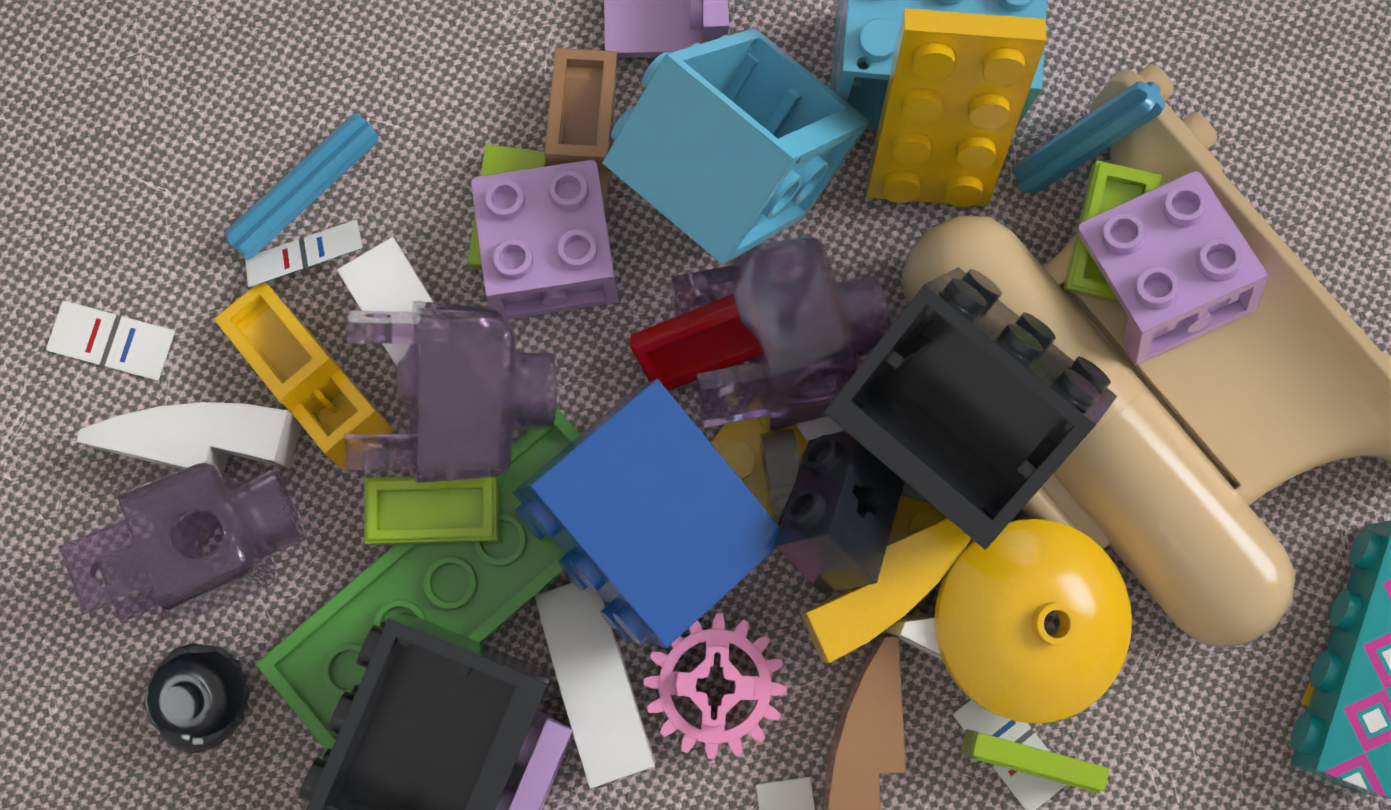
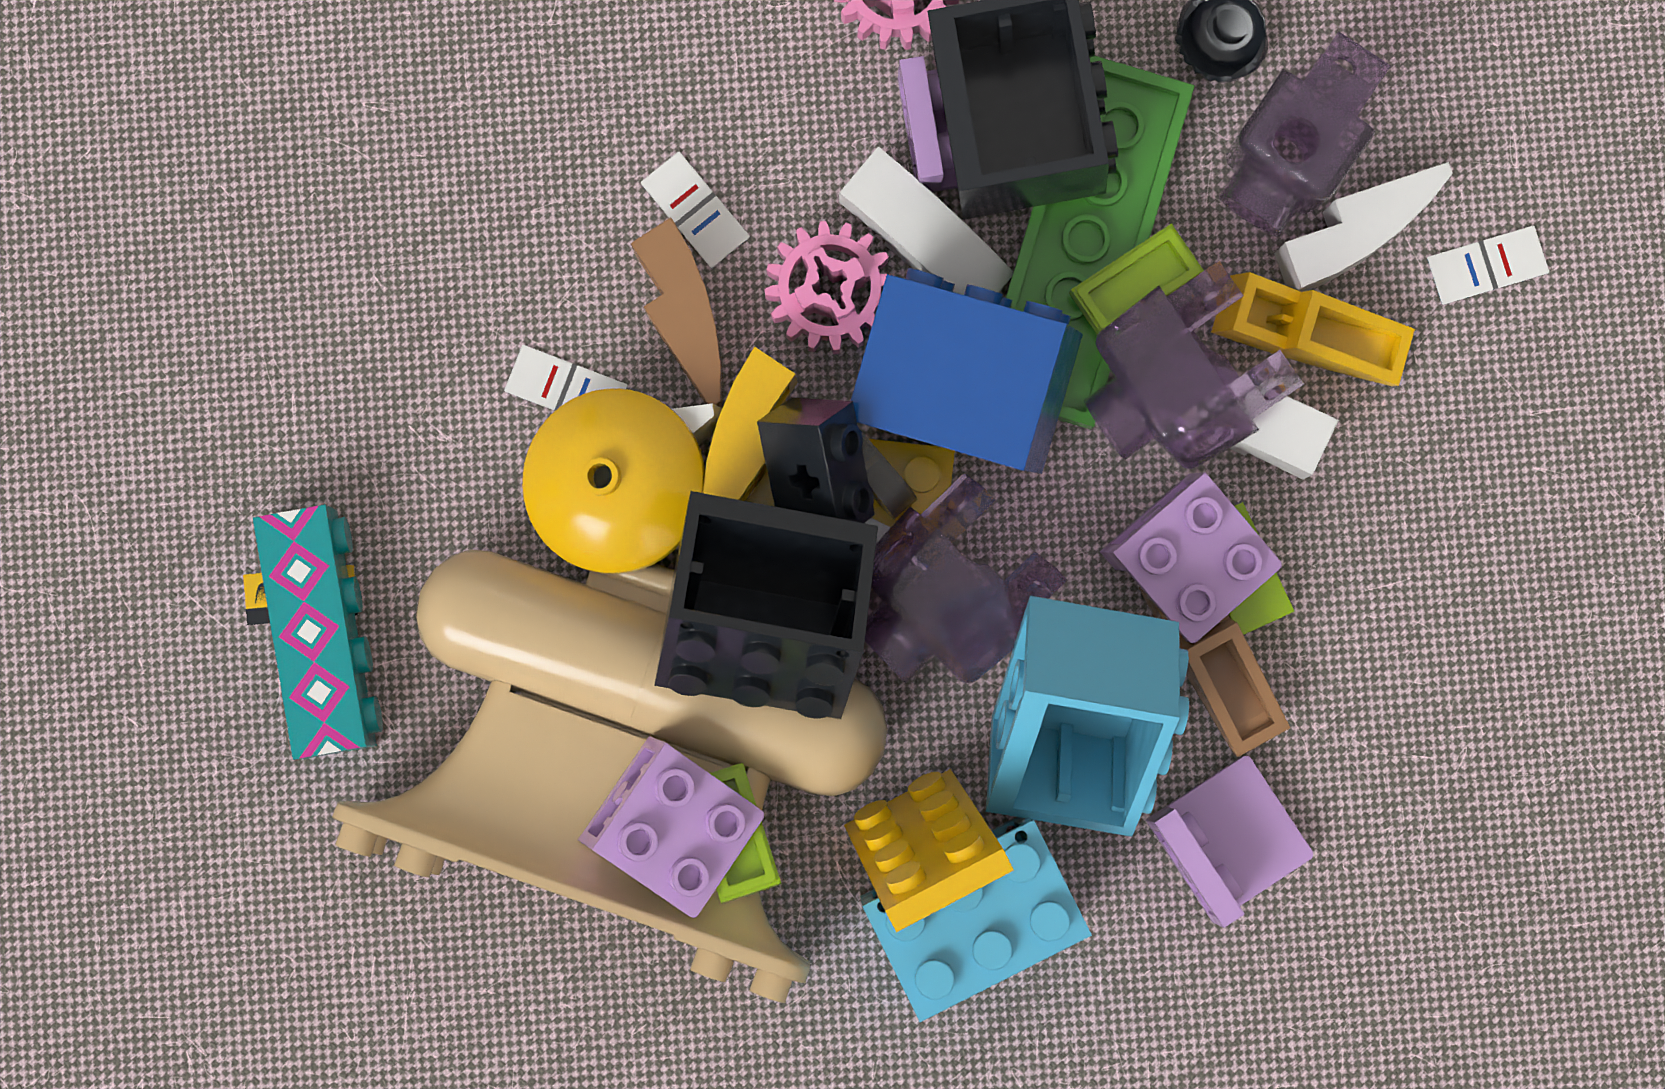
camera: 150 degrees right, 5 degrees up
(301, 186) = (1421, 483): dark azure axle -> none
(303, 253) = (1381, 428): white sticker -> none
(694, 344) = (1020, 538): red tile -> none
(1034, 761) = (546, 381): lime tile -> none
(1089, 136) = (797, 911): dark azure axle -> none

